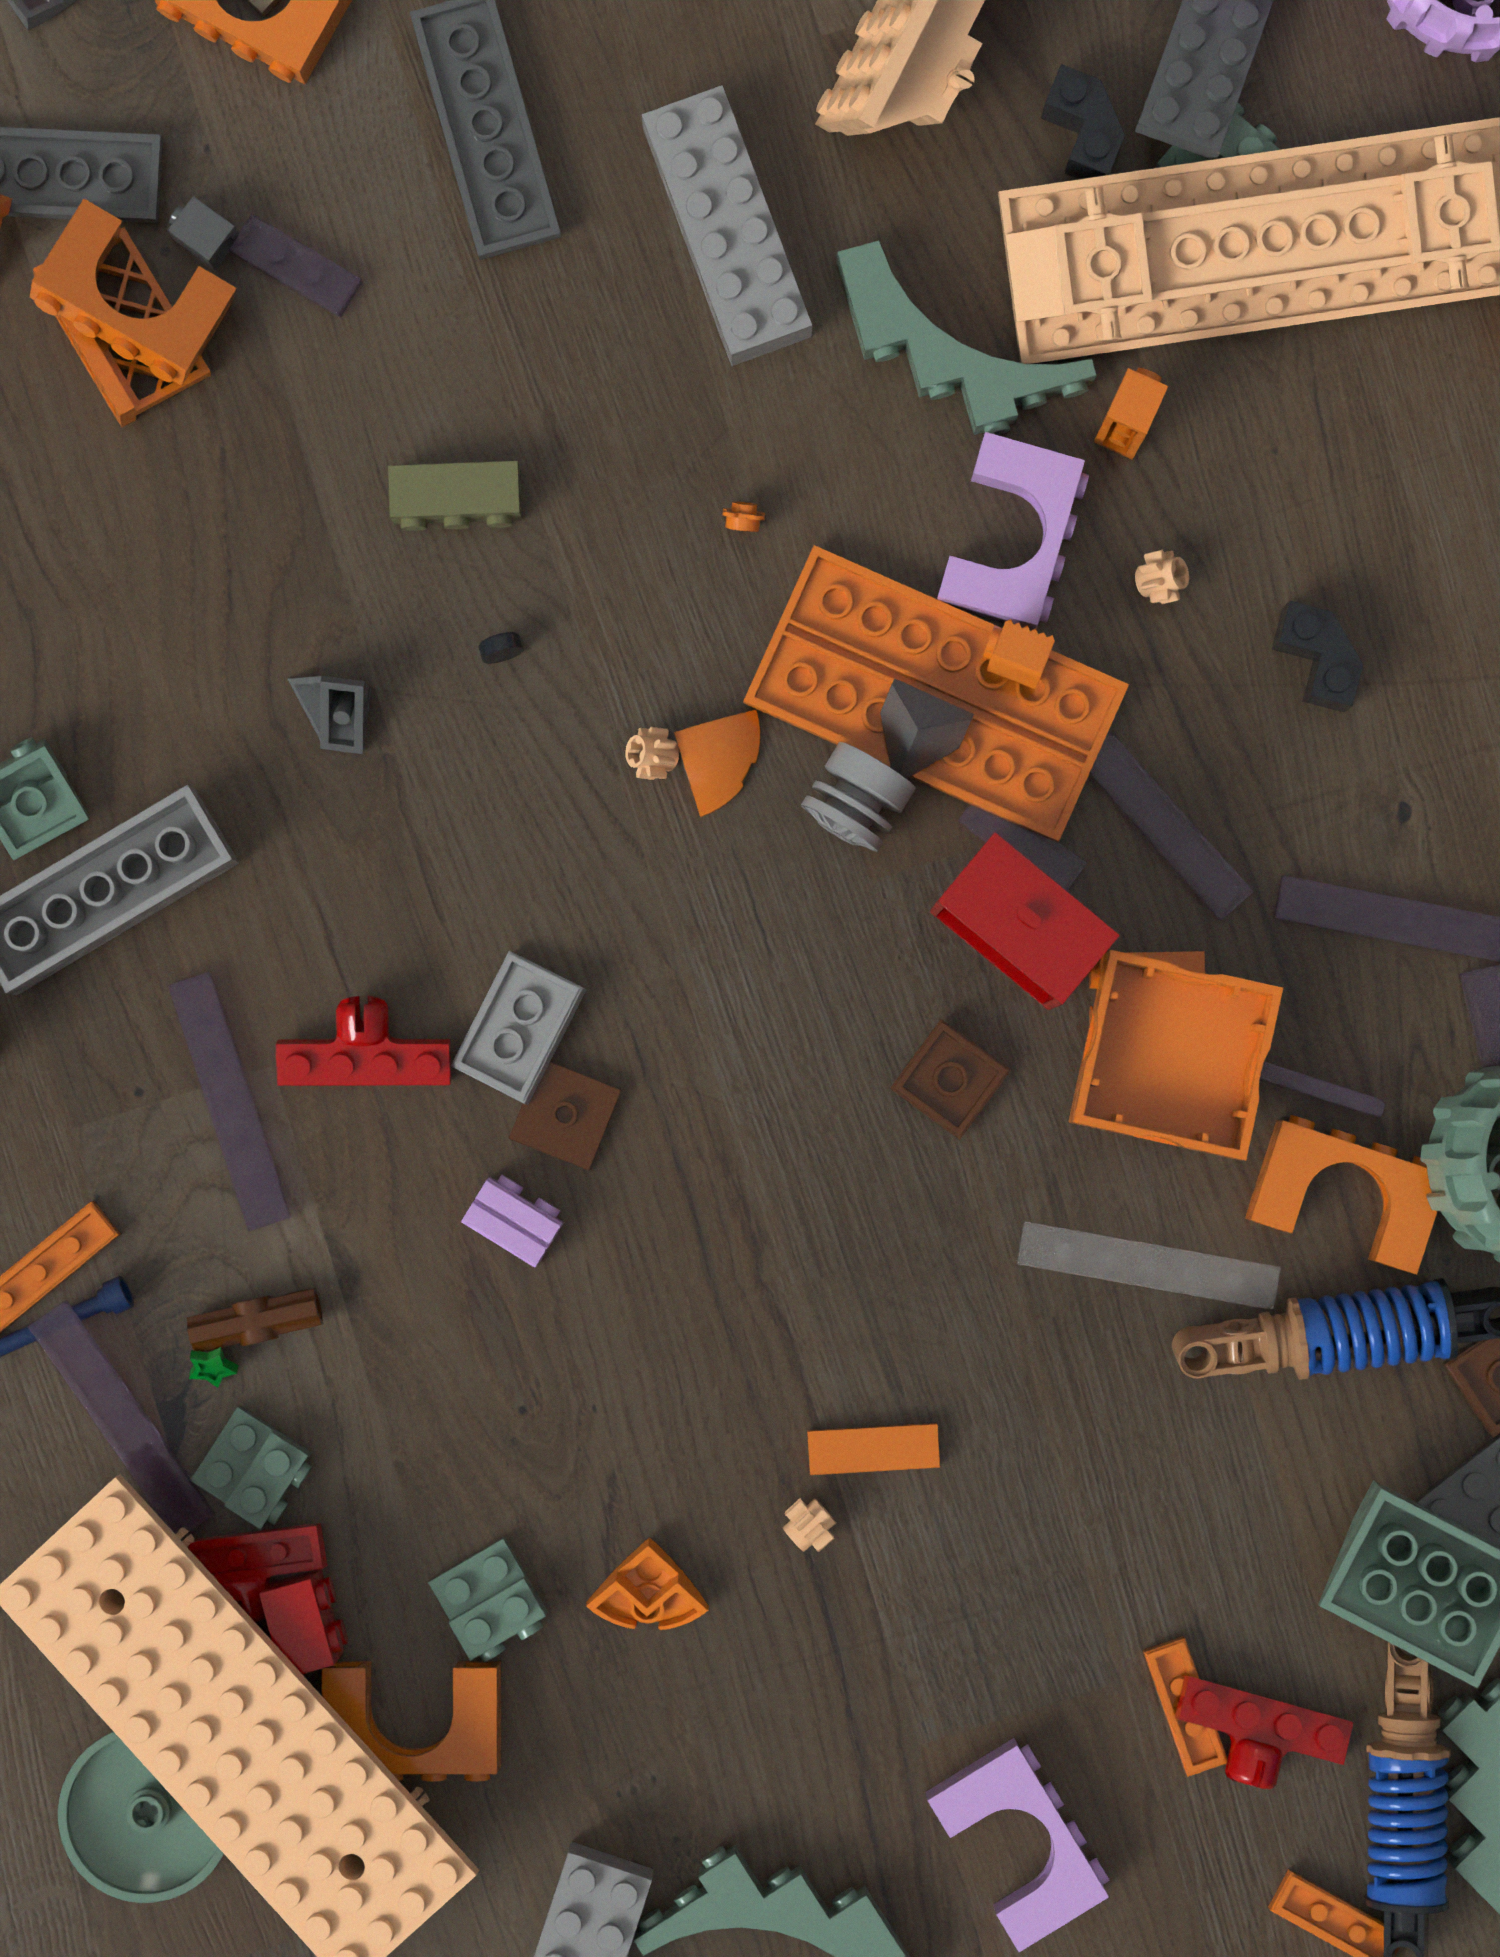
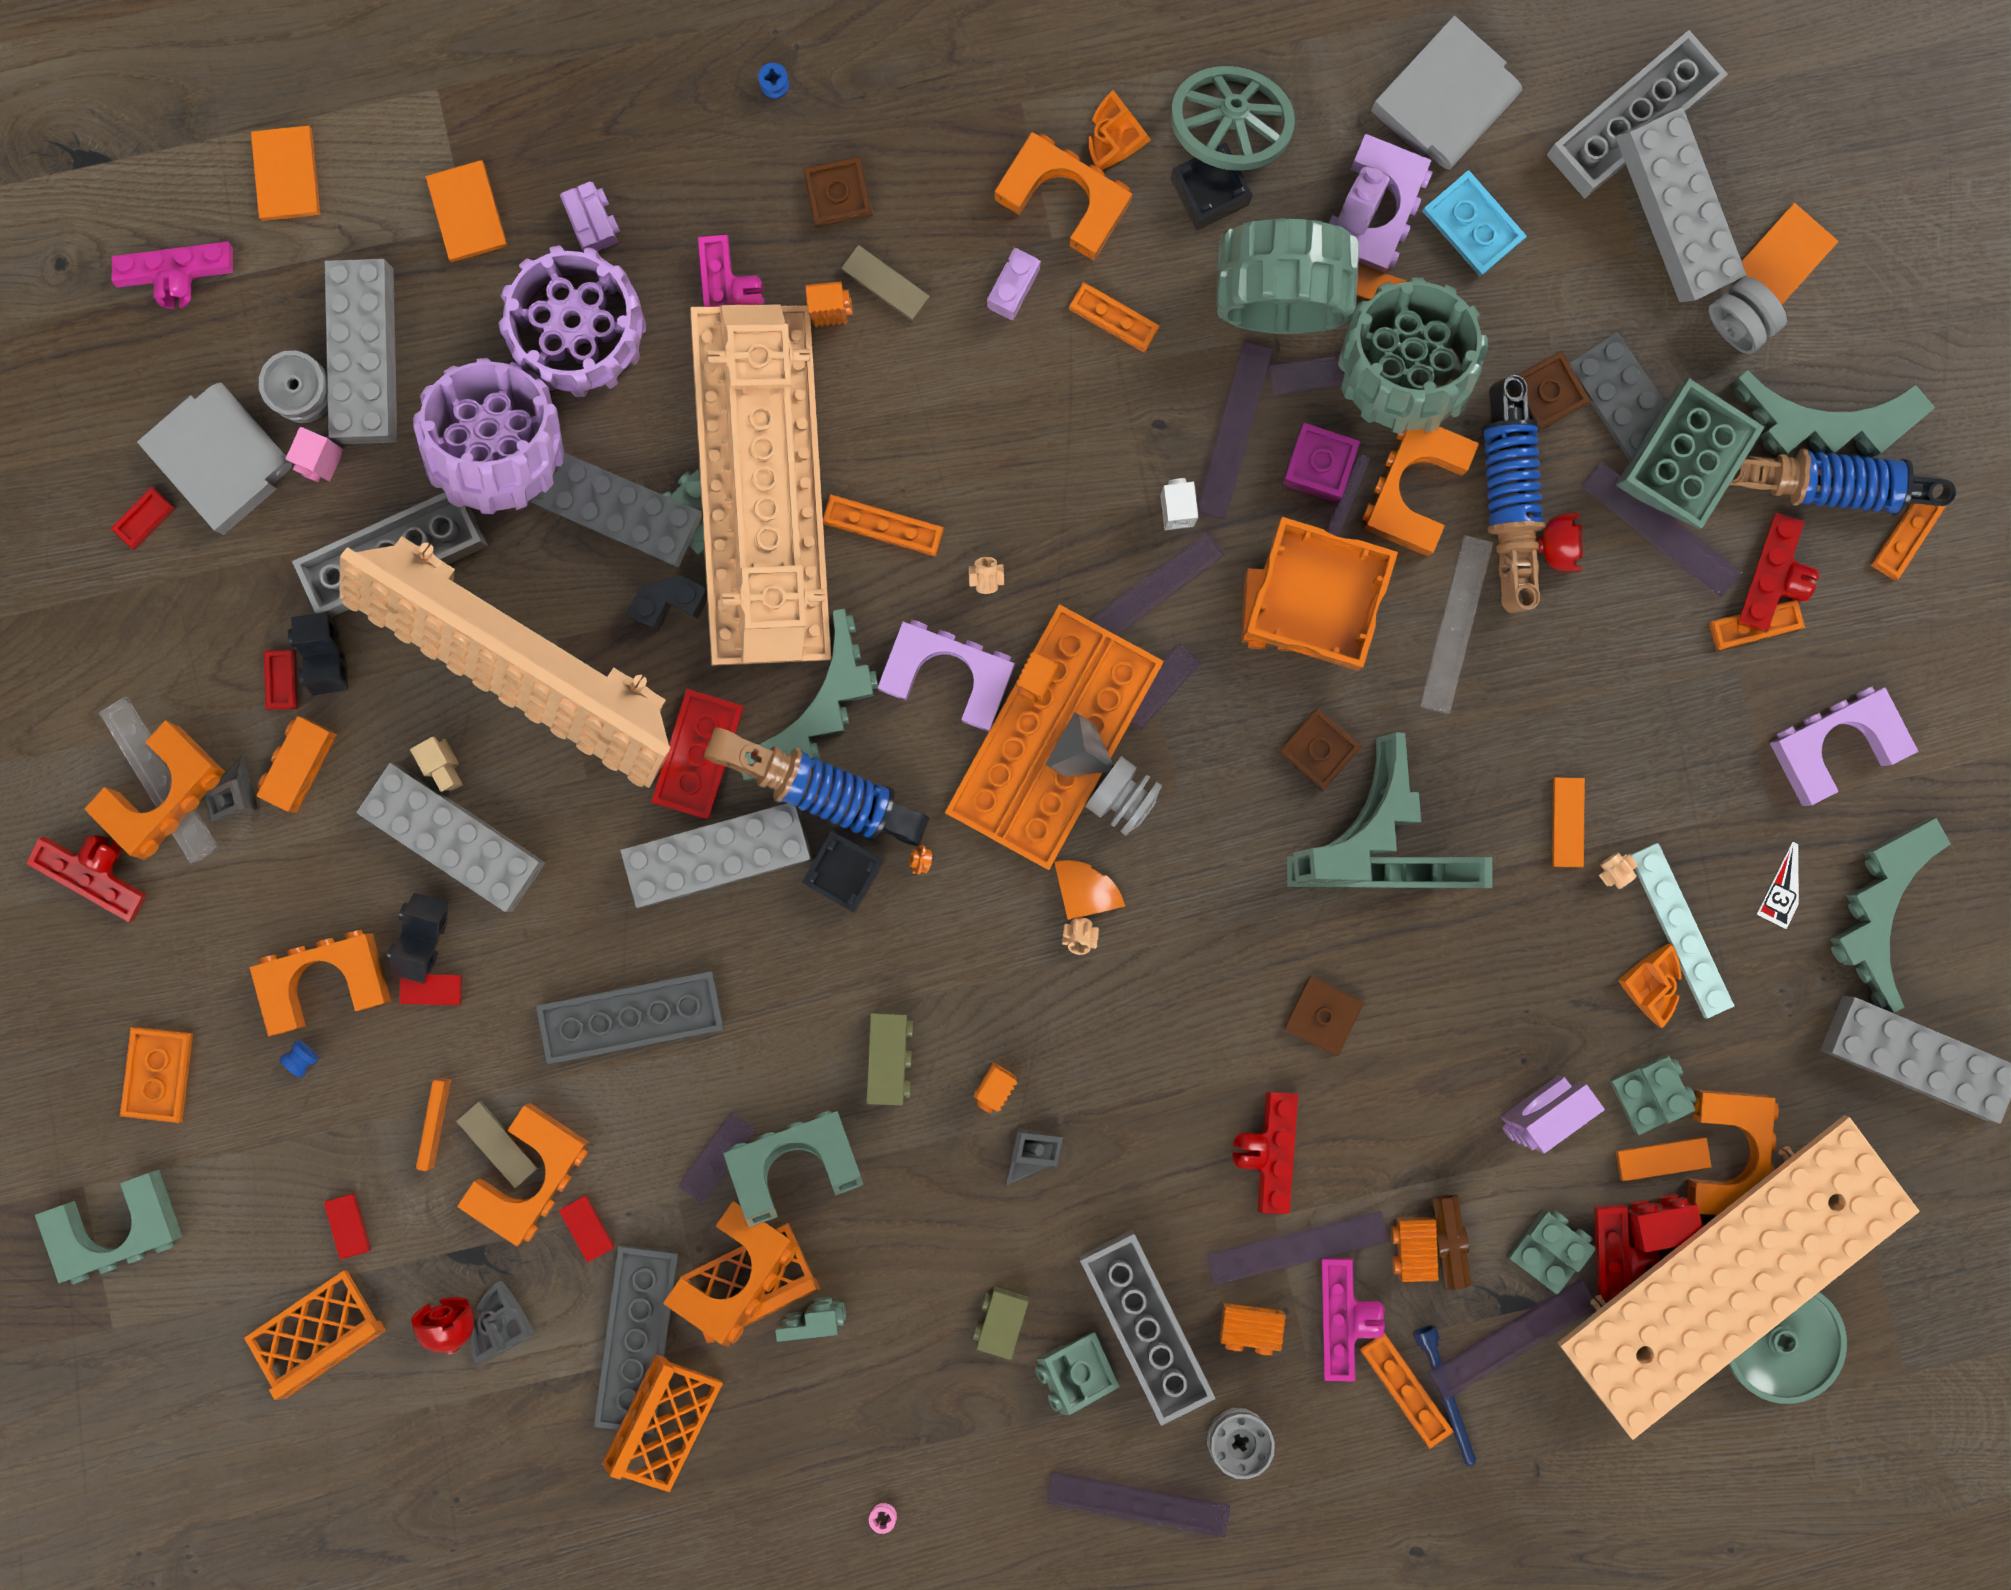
camera: 85 degrees left, 0 degrees up
(76, 423) = (820, 1320): none -> sand green plate
(92, 685) = (1001, 1323): none -> olive brick
(110, 1042) = (1252, 1328): none -> orange brick
(132, 1176) = (1345, 1319): none -> dark pink plate
(182, 90) = (587, 1228): none -> red tile
(202, 232) = (689, 1222): dark grey brick -> none
(211, 1366) = (1480, 1274): green piece -> none
(240, 1270) = (1415, 1249): none -> orange brick
(291, 309) = (752, 1161): none -> sand green arch
(397, 1621) = (1663, 1158): none -> orange tile
(424, 646) = (995, 1088): none -> orange brick
(446, 1442) = (1551, 1114): none -> lavender arch
(500, 647) = (997, 1035): black tile -> none
(512, 1220) = (1395, 1056): lavender brick -> none
(518, 1027) = (1262, 1043): light grey tile -> none
(717, 407) = (843, 871): none -> black container
(729, 1625) = (1681, 931): none -> light aqua plate
(778, 1184) = (1417, 873): none -> sand green arch
(797, 1773) = (1784, 892): none -> sticker
(835, 1159) = (1373, 832): none -> sand green arch
(836, 360) = (820, 788): none -> piece
(868, 187) = (687, 778): none -> red plate
(1024, 923) = (1224, 689): red container -> none
(1131, 412) = (874, 586): orange brick -> none
(1221, 425) = (883, 525): none -> orange tile
(1281, 1410) = (1562, 543): none -> red cylinder
(1288, 843) = (1179, 504): none -> white brick
(1309, 1559) = (1663, 532): none -> clear purple tile
(1319, 637) = (1057, 462): black brick -> none
(1368, 1046) = (1320, 463): none -> magenta container

